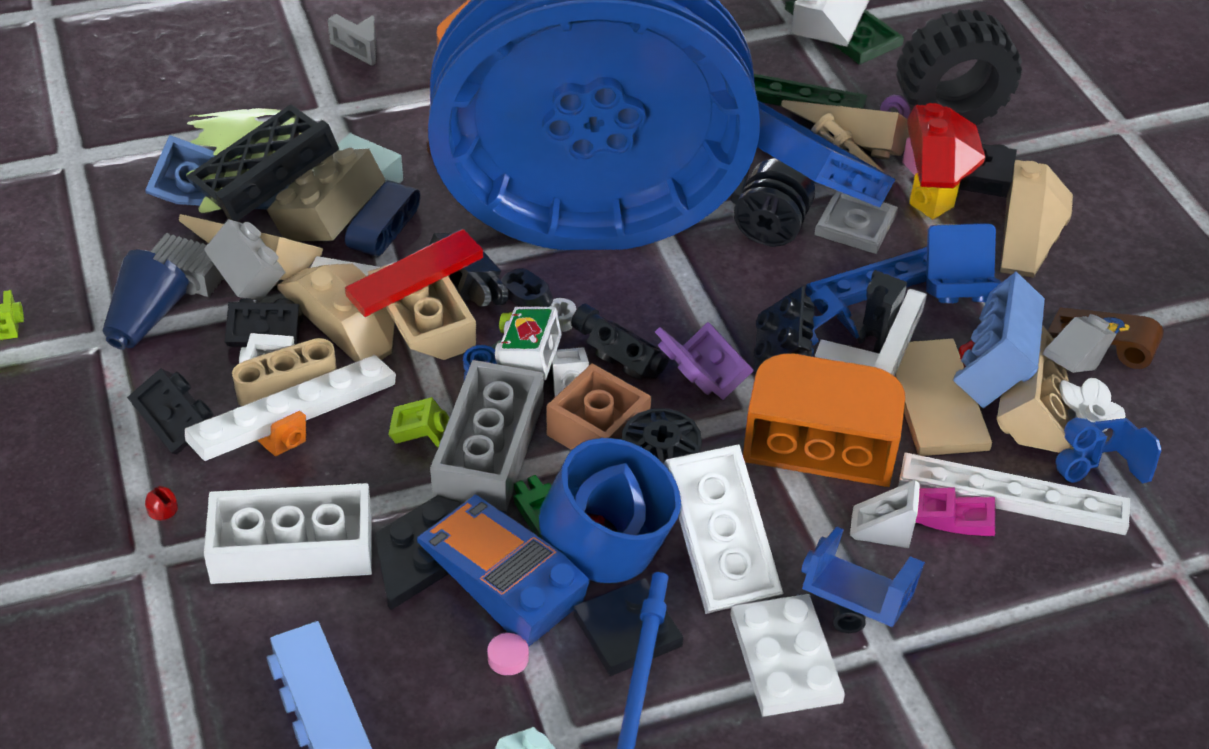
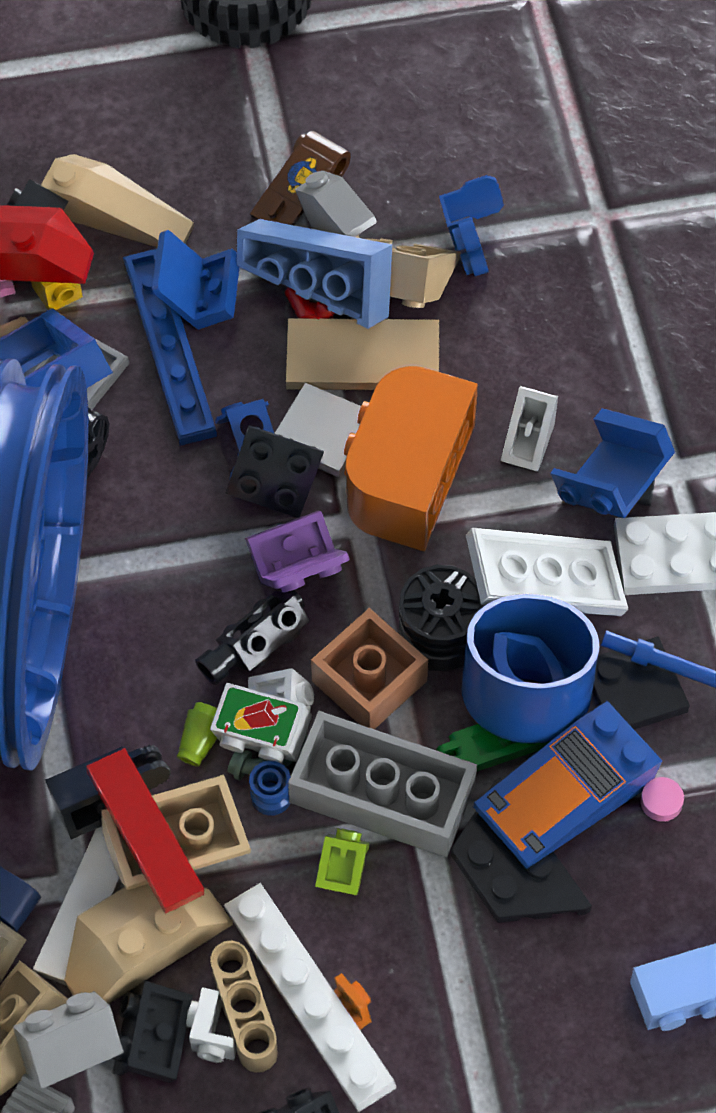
camera: 80 degrees left, 15 degrees up
(288, 533) = (505, 999): white brick -> none
(527, 289) = (141, 718): black beam -> none
(566, 307) = (182, 686): white bush -> none
(884, 301) = (257, 367): black hinge -> none
(901, 332) = (298, 365): white beam -> none
(961, 515) = (521, 368): dark pink slope -> none
(1021, 493) = (505, 310): white tile -> none
(1091, 401) = (401, 223): white plate -> none

